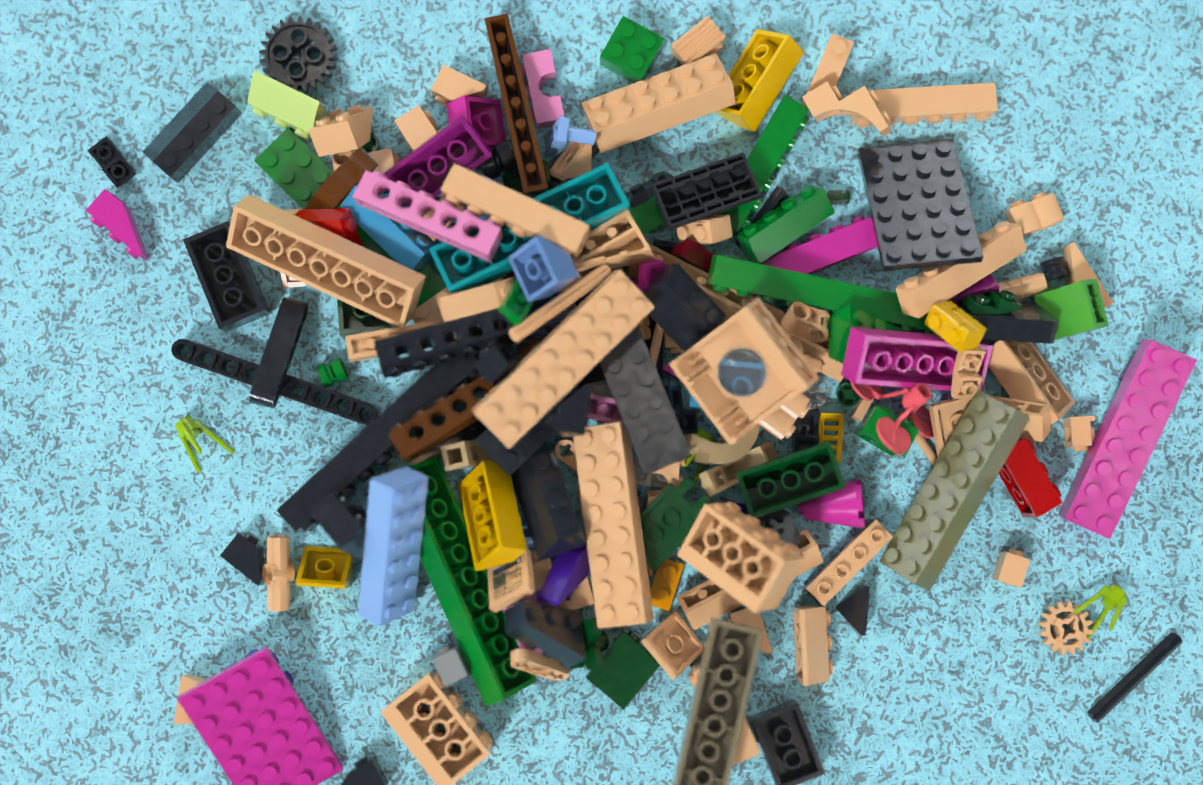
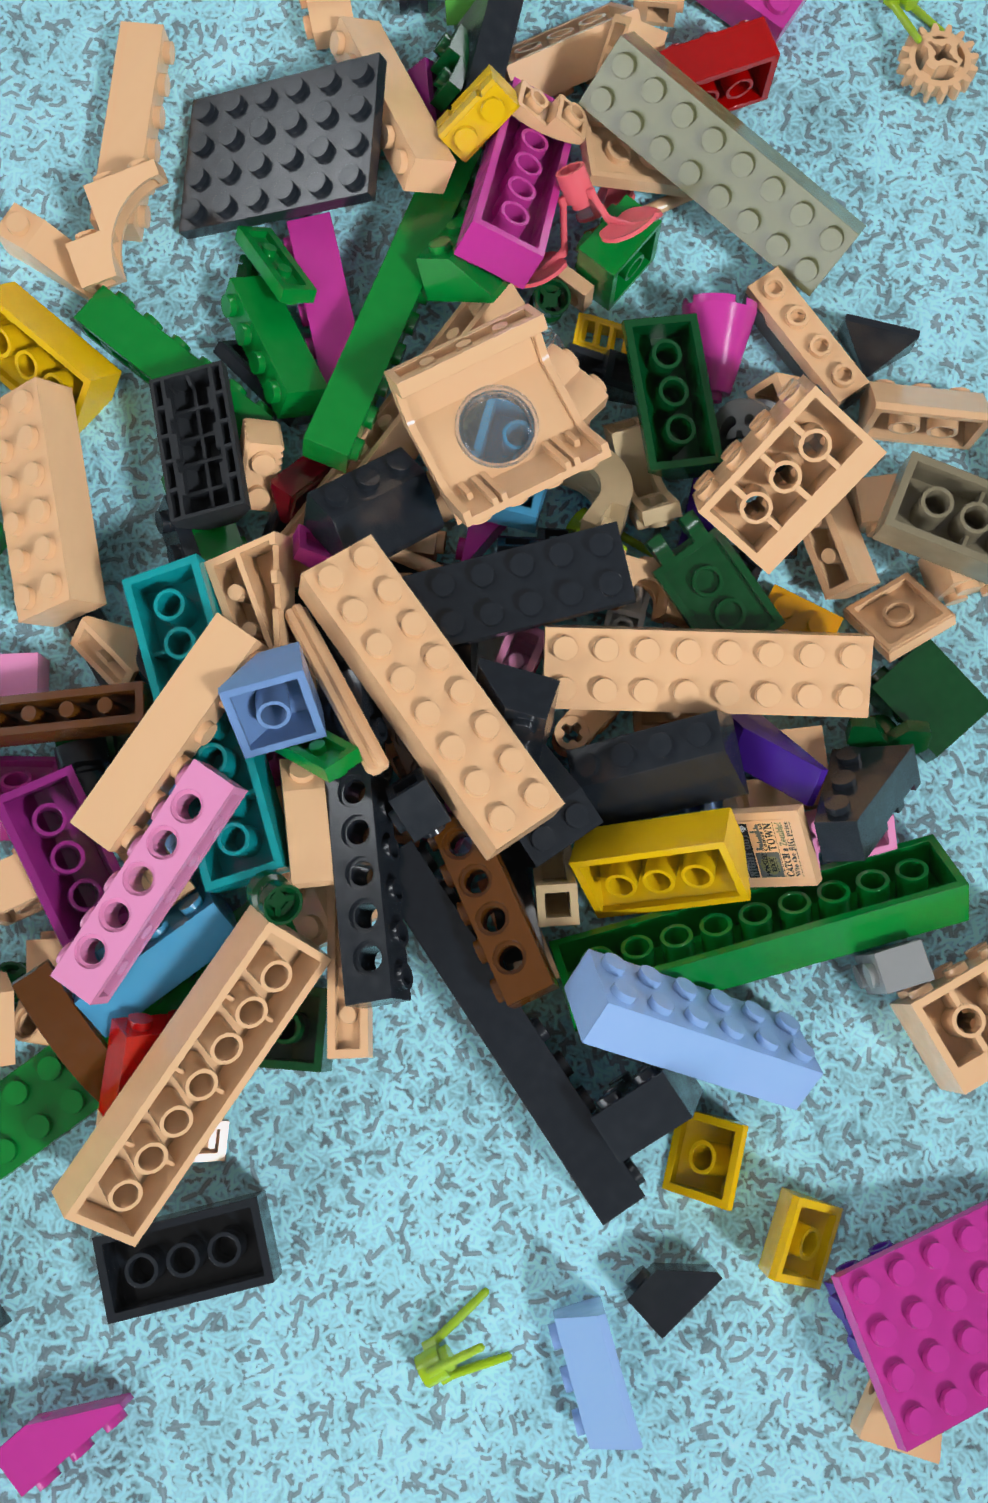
camera: 75 degrees left, 5 degrees down
(194, 520) = (594, 1376): none -> light blue slope
(241, 374) = (367, 1212): black beam -> none
(278, 353) = (336, 1183): black beam -> none
(278, 573) = (703, 1240): light nougat piece -> none
(287, 631) = (799, 1239): none -> yellow slope
(328, 374) = (383, 1106): green wheel -> none
(429, 289) = (274, 897): none -> dark green wheel
(538, 664) = (909, 827): light nougat beam -> none
(561, 132) = (58, 649): light blue piece -> none
(806, 320) = (432, 325): light nougat piece -> none
(839, 215) = (275, 265): none -> green plate
(1011, 568) = (842, 120): light nougat brick -> none
(1025, 286) = (429, 28): light nougat axle -> none

